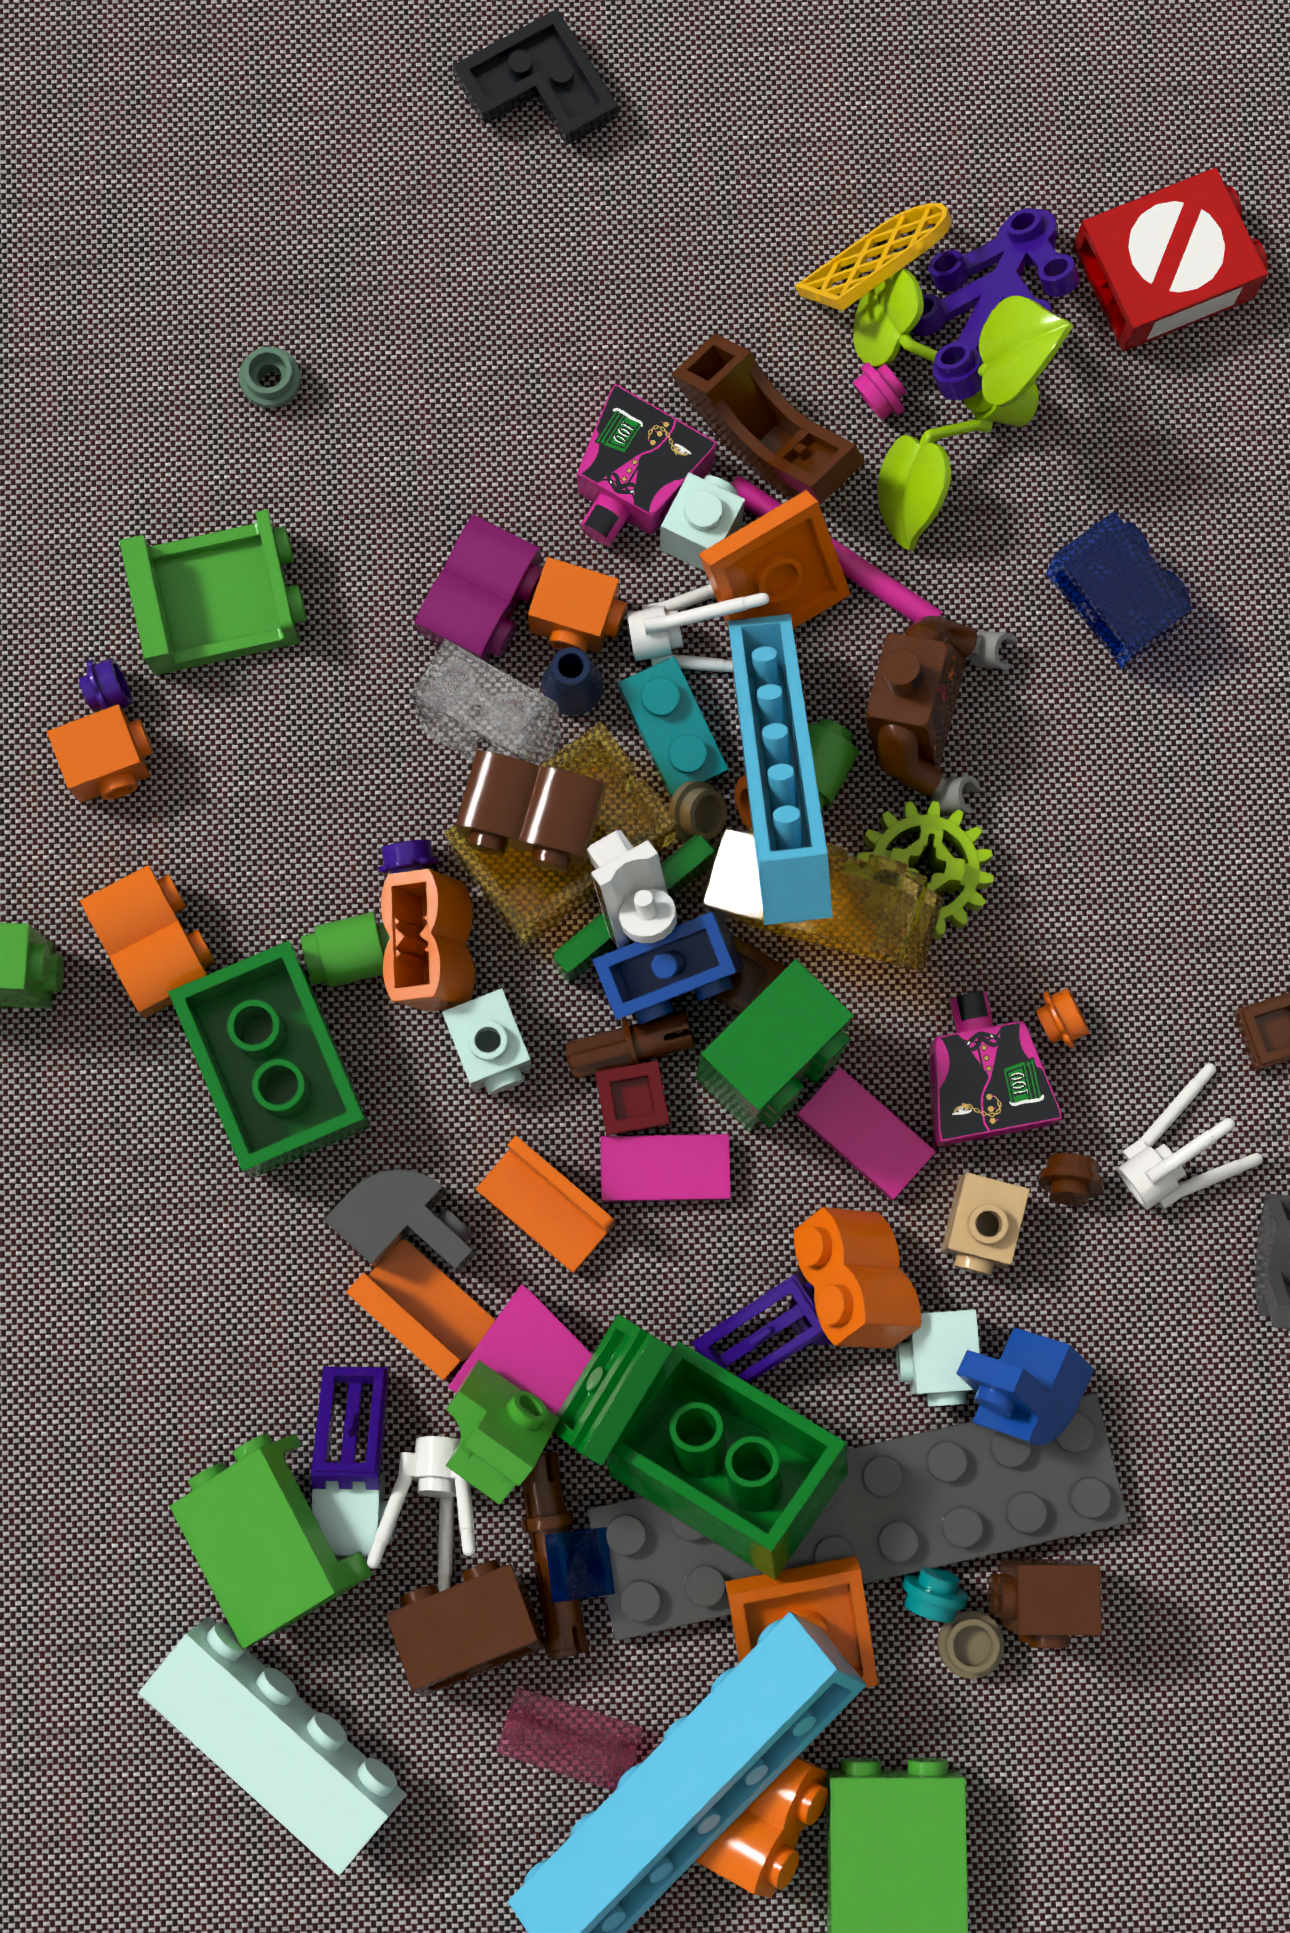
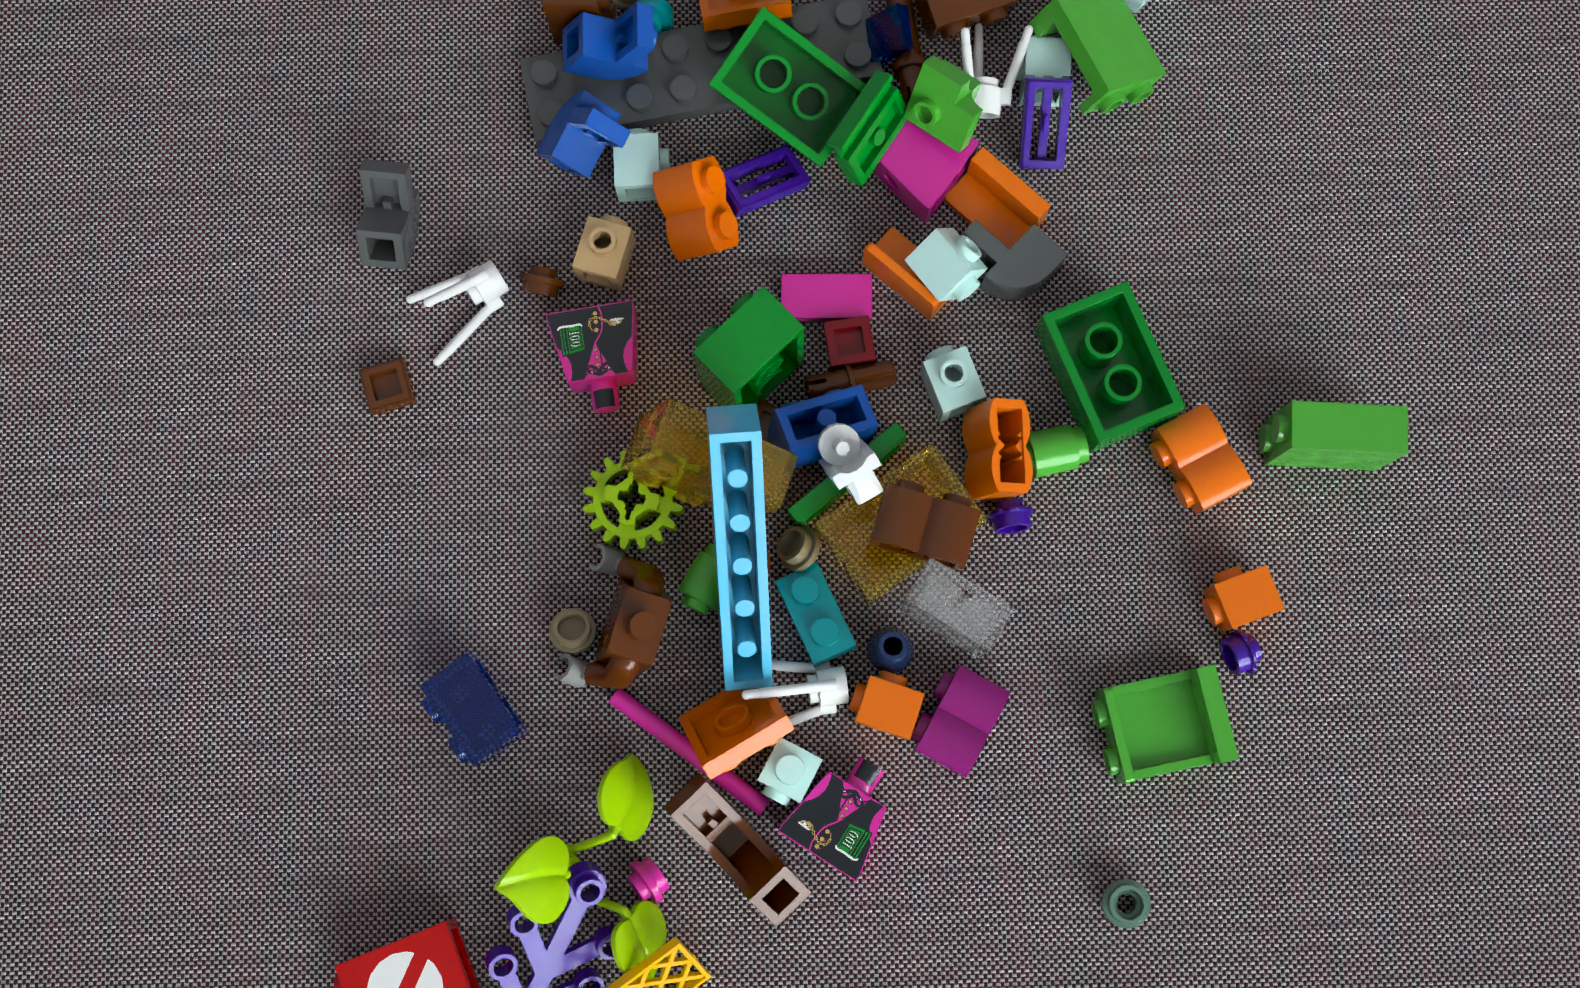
camera: 175 degrees left, 0 degrees up
(495, 1195) = (948, 264): none -> light aqua brick
(865, 1133) = (677, 312): dark pink tile -> none
(996, 700) = (572, 631): none -> dark tan plate
(996, 1523) = (609, 47): none -> blue brick
(1062, 1018) = (539, 394): orange plate -> none

